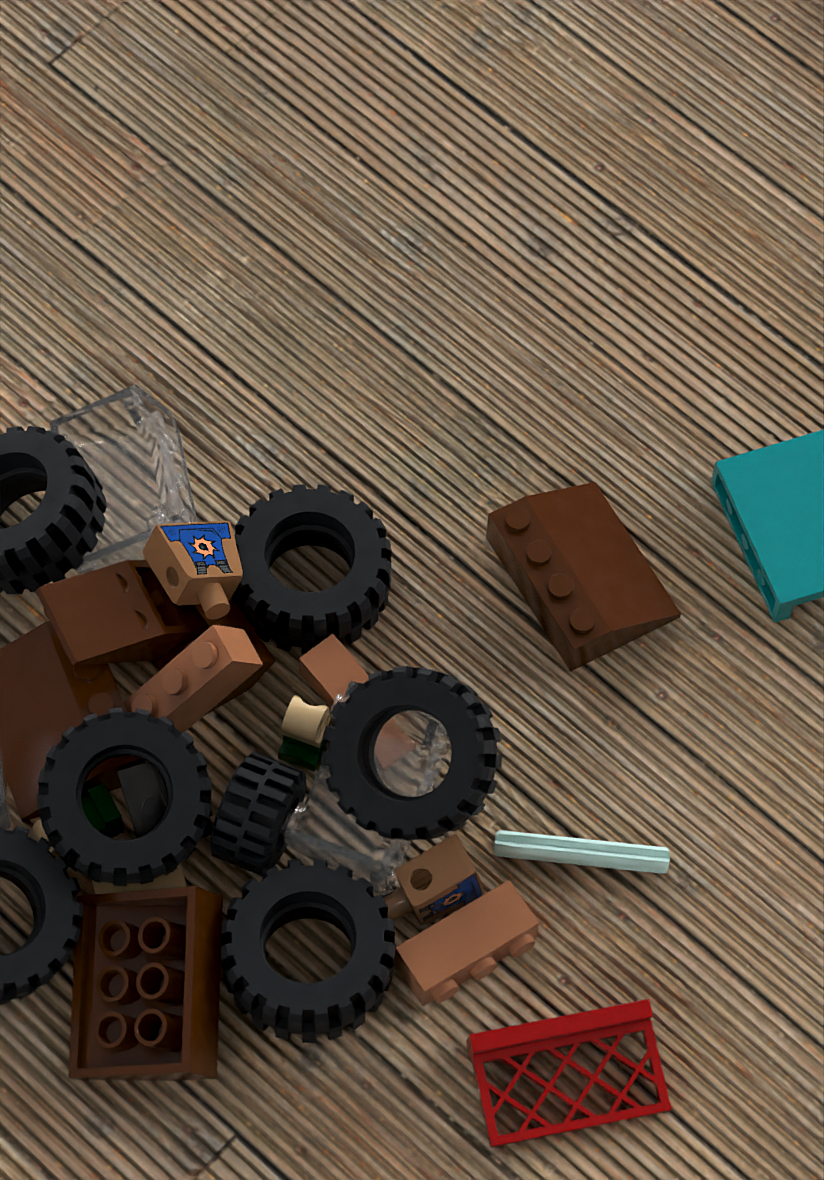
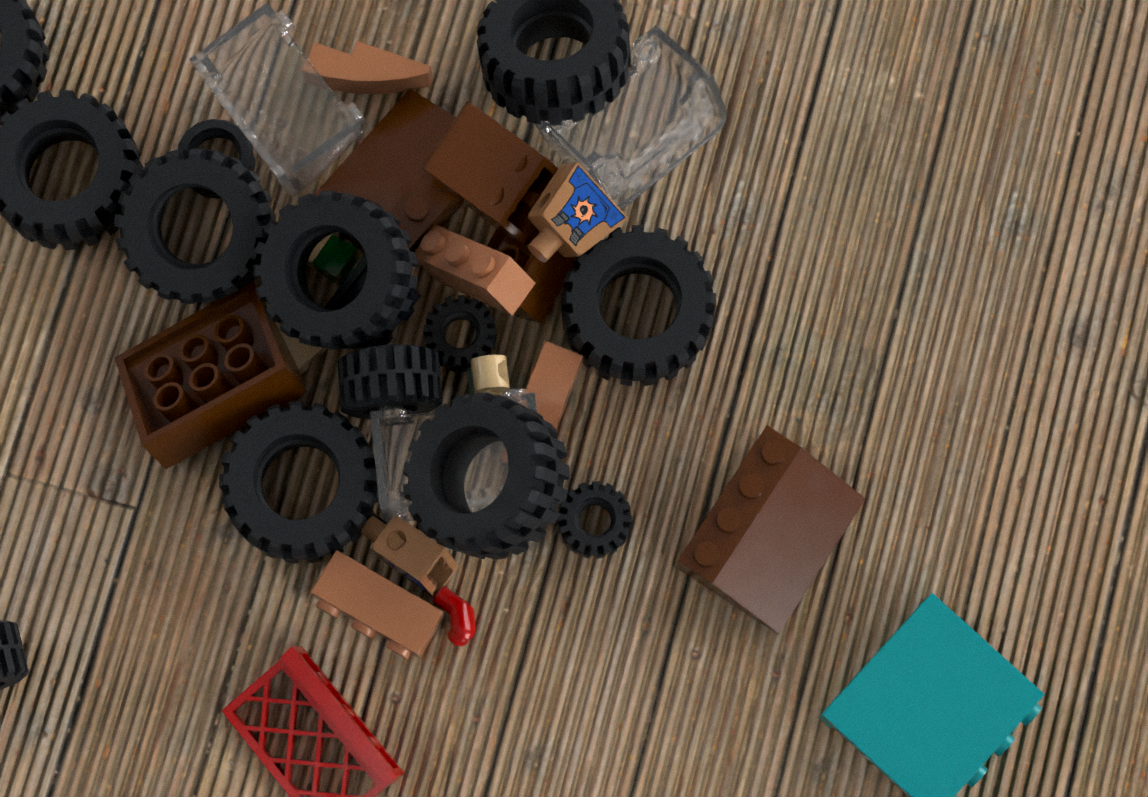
camera: 65 degrees right, 15 degrees up
(234, 717) = (455, 310): none -> black tyre
(510, 697) = (602, 496): none -> black tyre
(520, 875) = (461, 616): none -> red arm
(581, 851) = (511, 658): light aqua axle -> none

